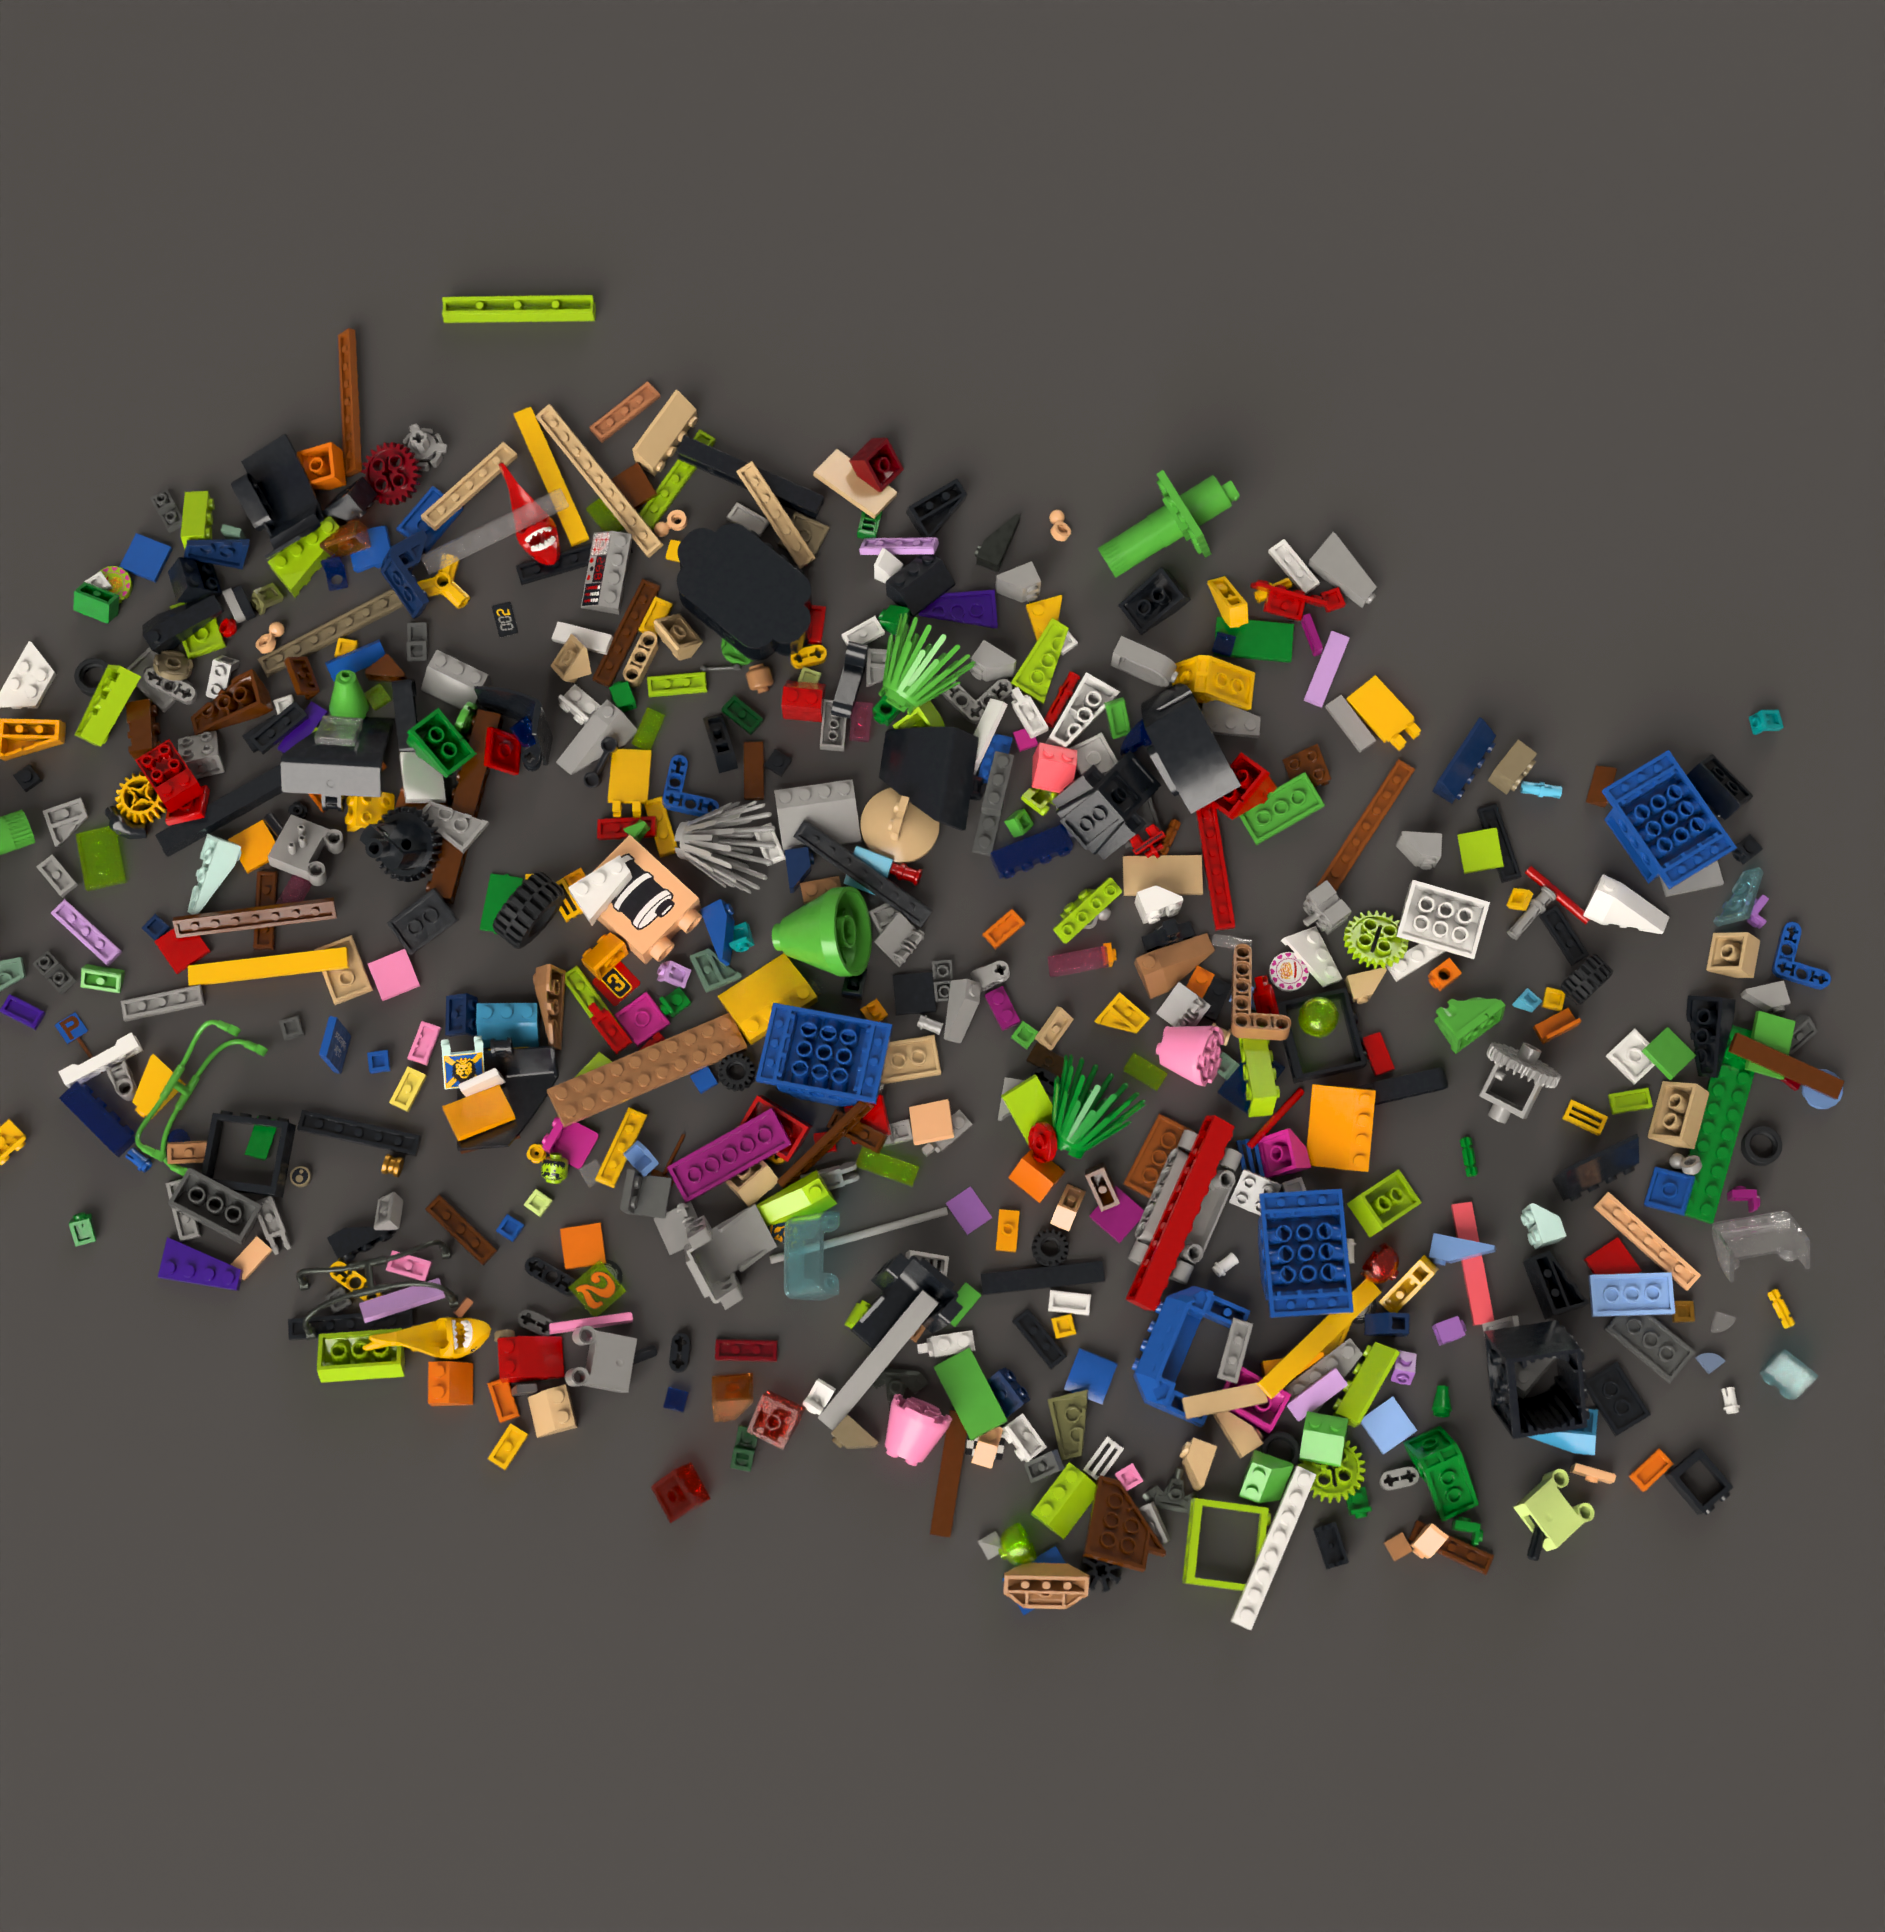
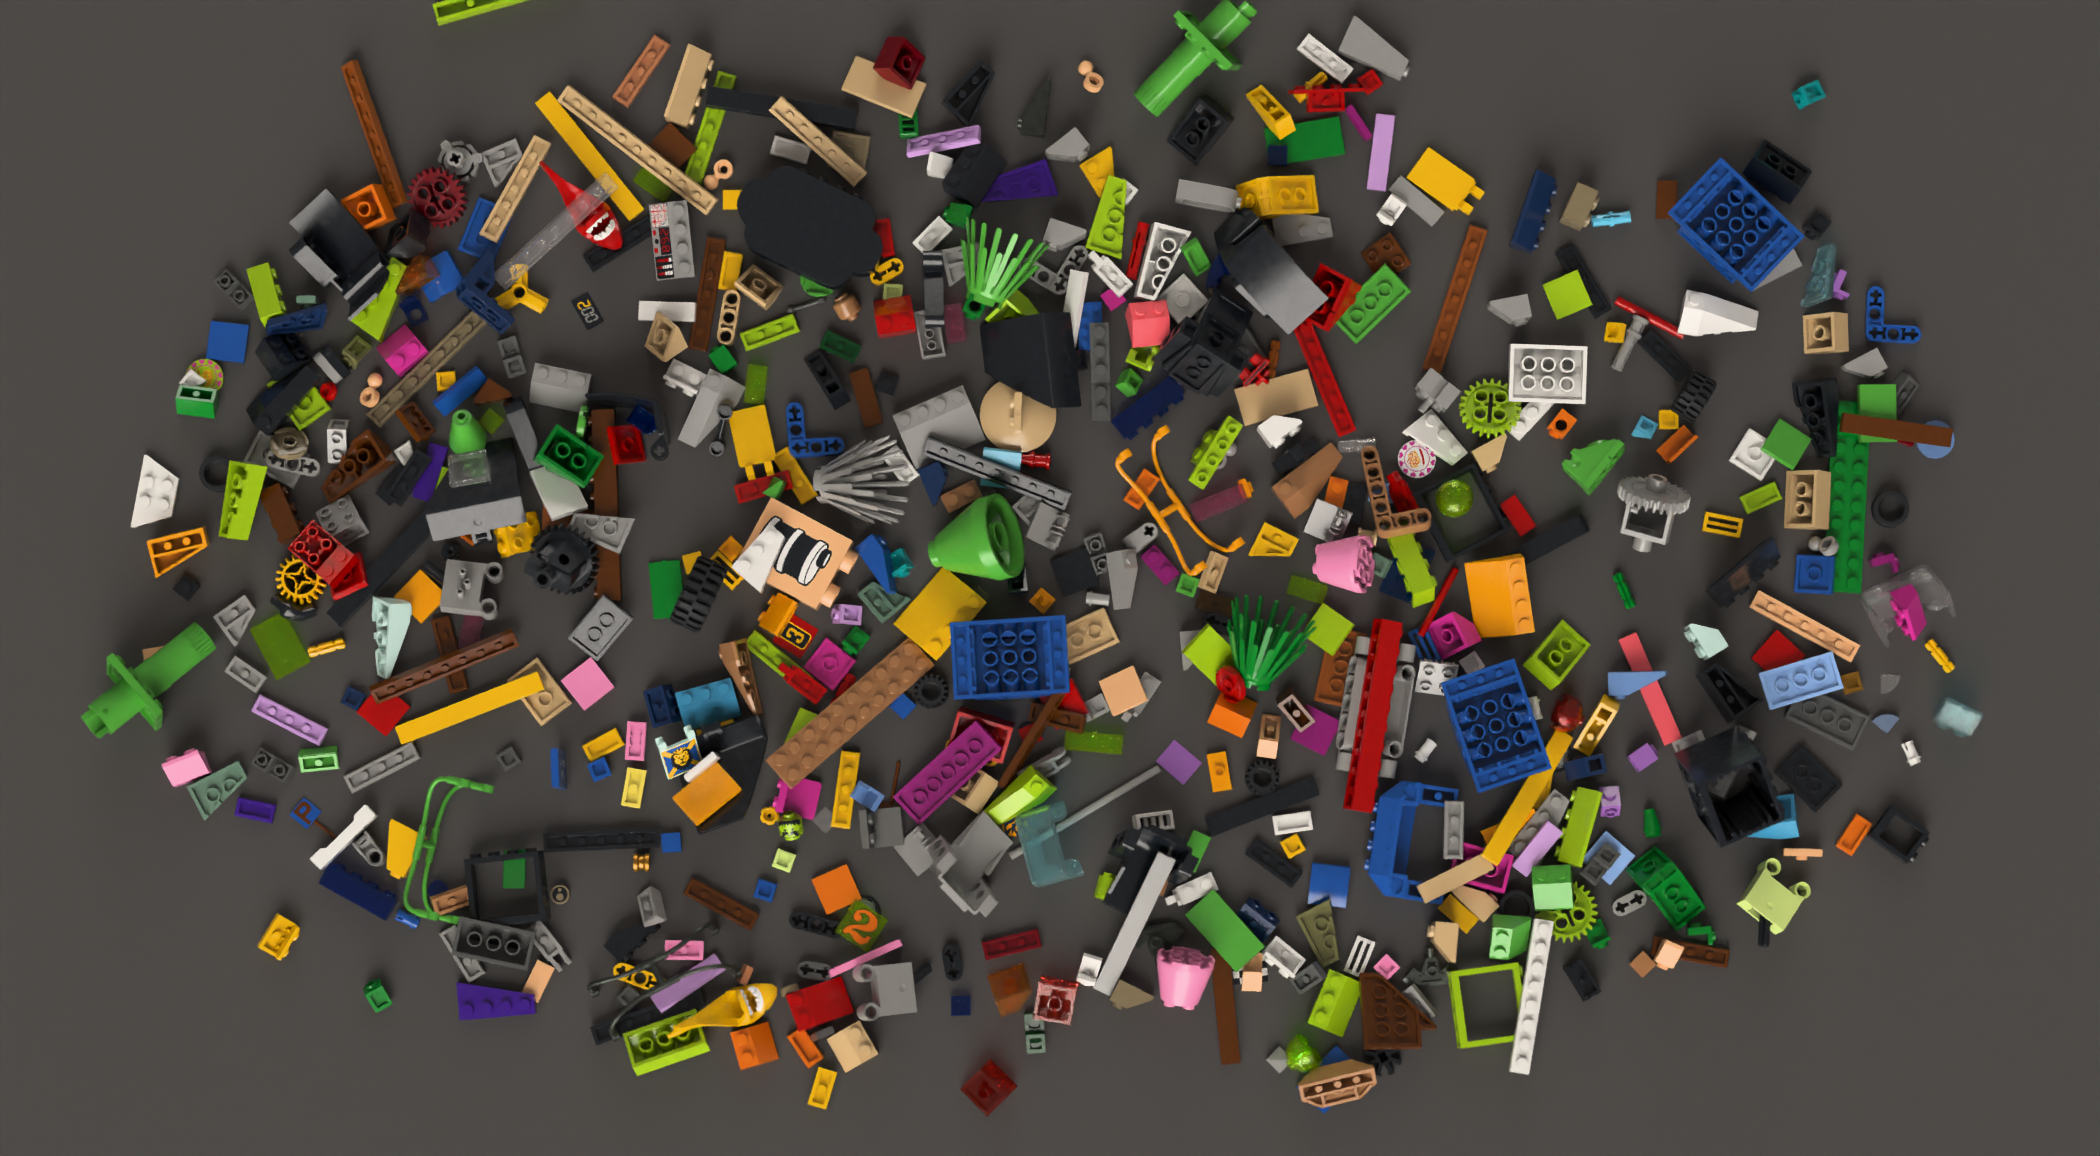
camera: 10 degrees left, 10 degrees up
(146, 871) = (326, 647): none -> yellow axle
(312, 609) = (402, 350): none -> dark pink slope
(391, 1039) = (603, 745): none -> yellow tile
(429, 1154) = (671, 842): none -> blue tile
(464, 457) = (502, 160): none -> light grey wing
(1034, 954) = (1177, 505): none -> light orange bar
(1157, 1116) = (1330, 629): none -> lime tile
(1214, 1435) = (1458, 913): none -> yellow tile
(1324, 724) = (1391, 210): none -> white bracket
(1378, 1428) = (1600, 864): none -> dark grey slope
(1759, 1251) = (1908, 611): none -> dark pink slope

